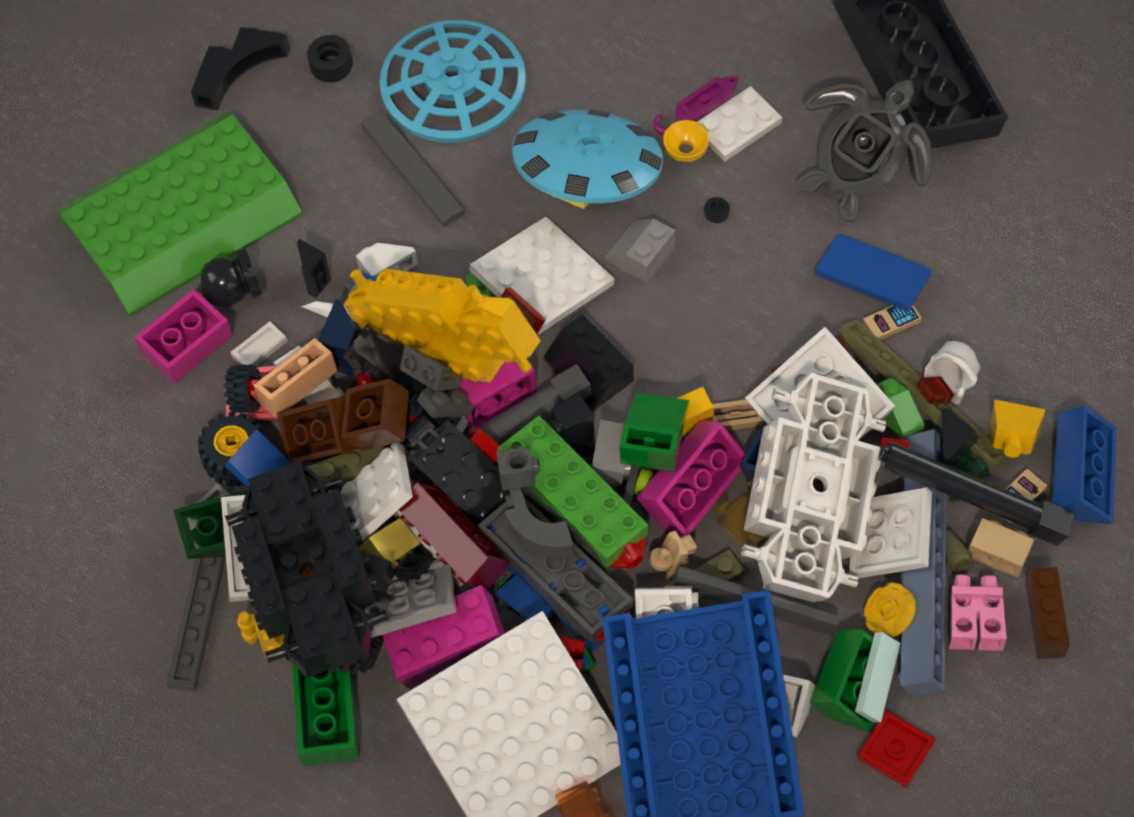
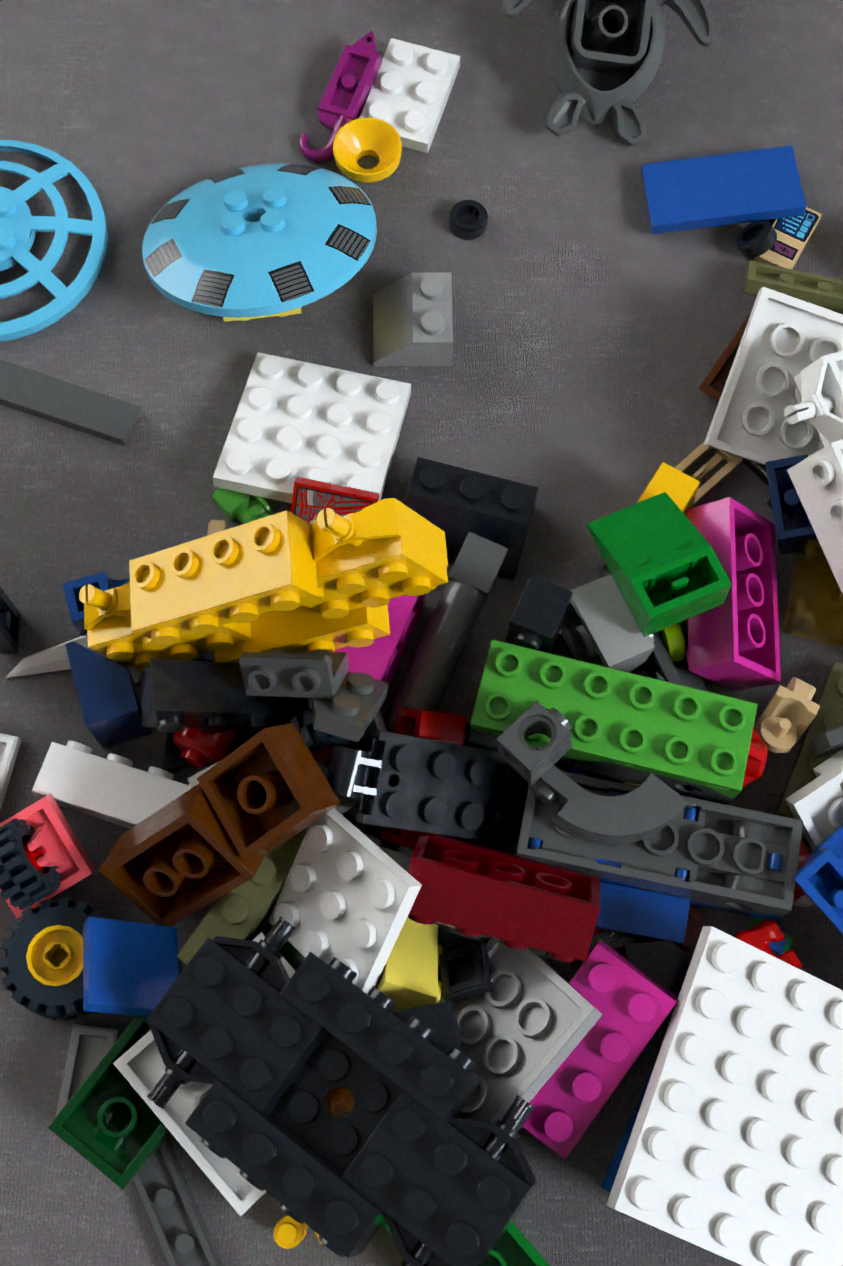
camera: 40 degrees left, 10 degrees up
(295, 377) = (90, 800): light nougat brick -> none
(388, 256) = (83, 542): white slope -> none
(870, 309) = (756, 238): none -> black tile

